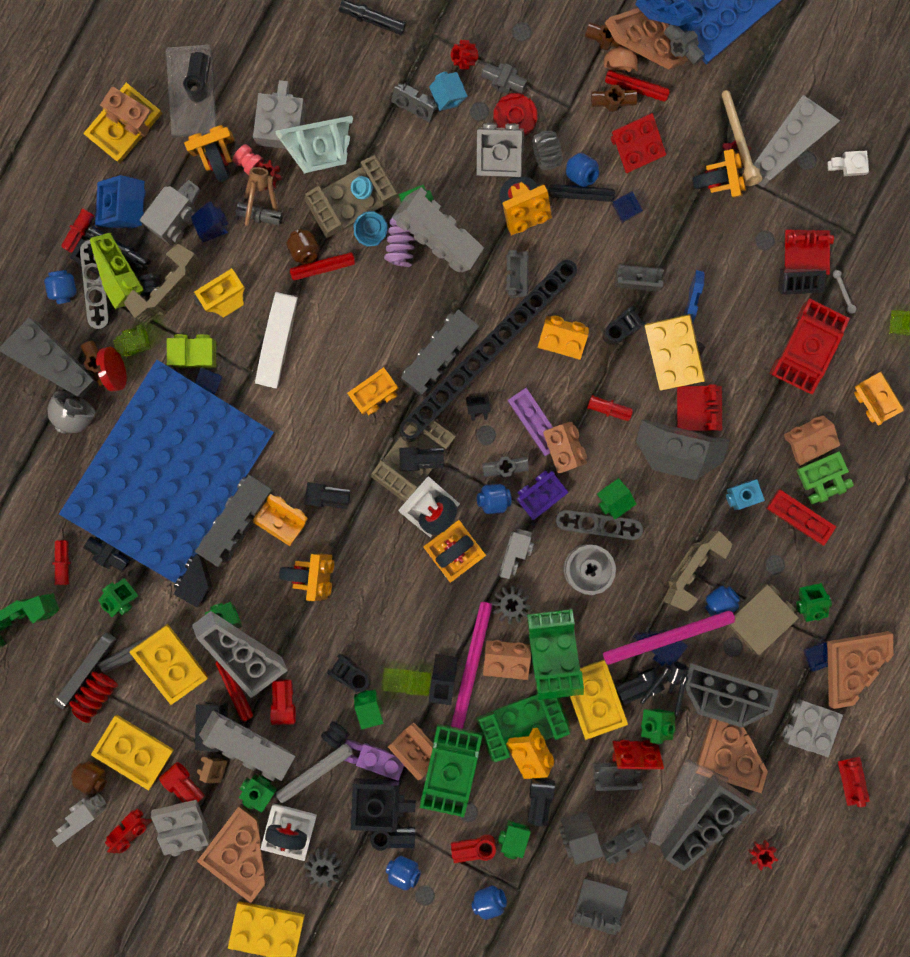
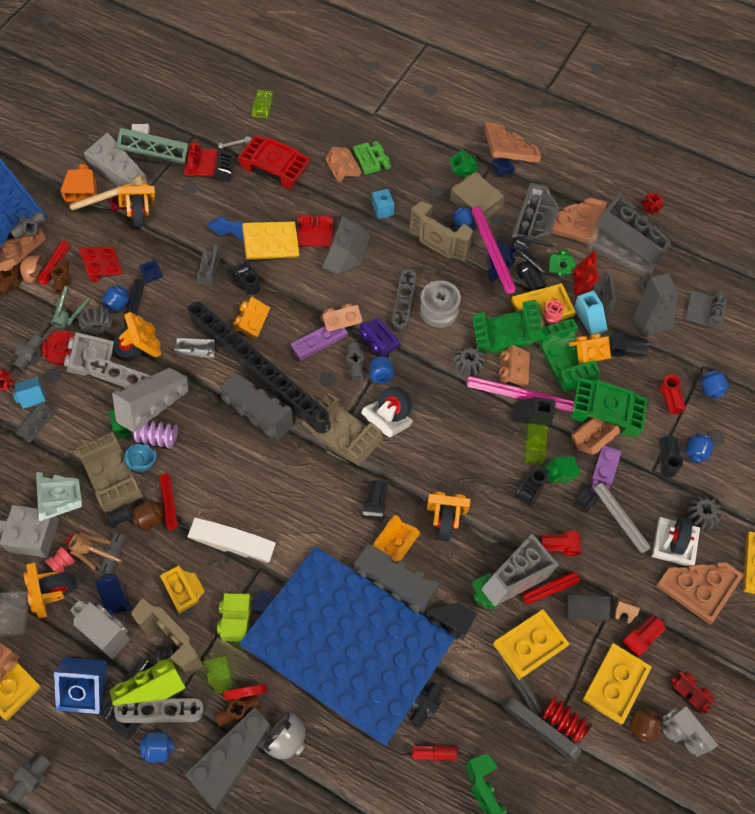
camera: 90 degrees left, 25 degrees down
(30, 168) = (29, 778): none -> dark grey axle
(77, 230) = (101, 730): red axle -> none
(117, 598) = (469, 691): green brick -> none
(180, 828) = (684, 635): light grey plate -> none
(246, 746) = (601, 570): light grey wedge -> none
(253, 799) = (644, 565): green brick -> none
(302, 215) = (119, 515): none -> black bush
(361, 187) = (103, 460): medium azure plate -> none
(373, 392) = (285, 459): light orange bracket -> none
(378, 805) = (644, 465): black hinge -> none
(415, 458) = (346, 424): black piece -> none
(454, 551) = (426, 401): light orange plate -> none
(470, 194) = (119, 380): none -> light grey beam
(478, 404) = (303, 378): black tile -> none
(514, 840) = (661, 364): green brick -> none
(518, 546) = (425, 354): light grey plate -> none
(553, 108) = (61, 317): none -> sand green plant
(577, 705) = (553, 312): none -> coral wheel
(582, 759) = (591, 313): none -> medium azure slope
(610, 408) = (311, 289): red axle -> none
(615, 499) = (383, 284): green brick -> none
(758, 98) = (79, 184): none -> orange torso
(801, 517) = (400, 172): red plate -> none
(812, 727) = (555, 172): light grey plate -> none
(828, 182) = (152, 142): none -> sand green fence
(853, 782) = (591, 150): red hinge -> none
(878, 398) = (314, 124): light orange bracket -> none

